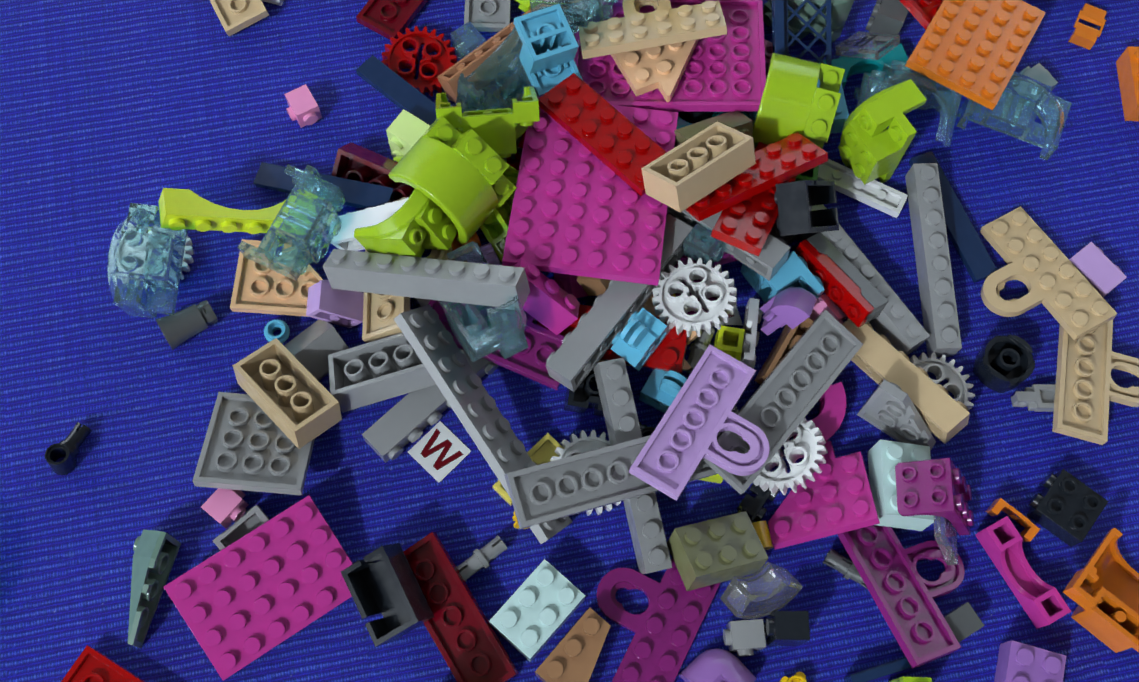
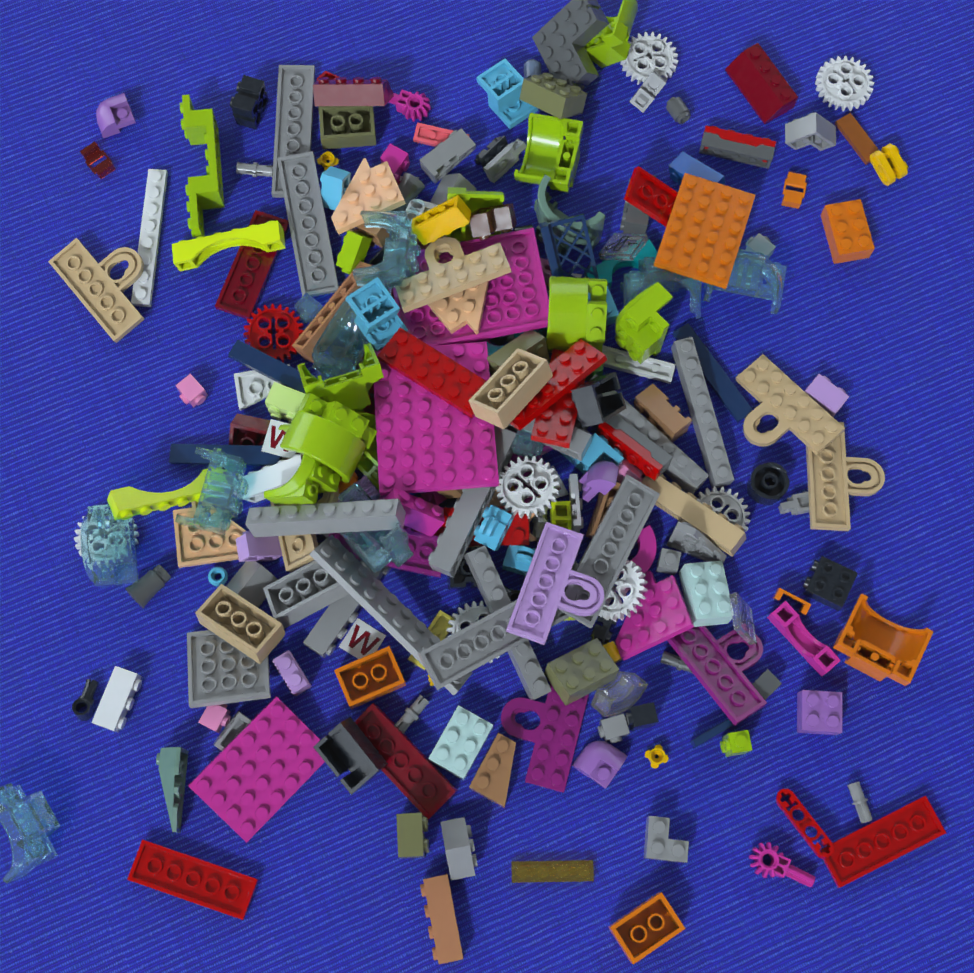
camera: 10 degrees left, 5 degrees up
(107, 456) = (117, 699): none -> white brick
(338, 471) = (291, 673): none -> lavender brick
(374, 117) = (251, 388): none -> white wing
(386, 186) = (273, 440): none -> white sticker
(437, 498) = (370, 677): none -> orange brick
(857, 434) = (668, 561): none -> light grey brick
(882, 249) = (661, 414): none -> medium nougat wedge
(936, 490) = (730, 595): magenta bracket -> none

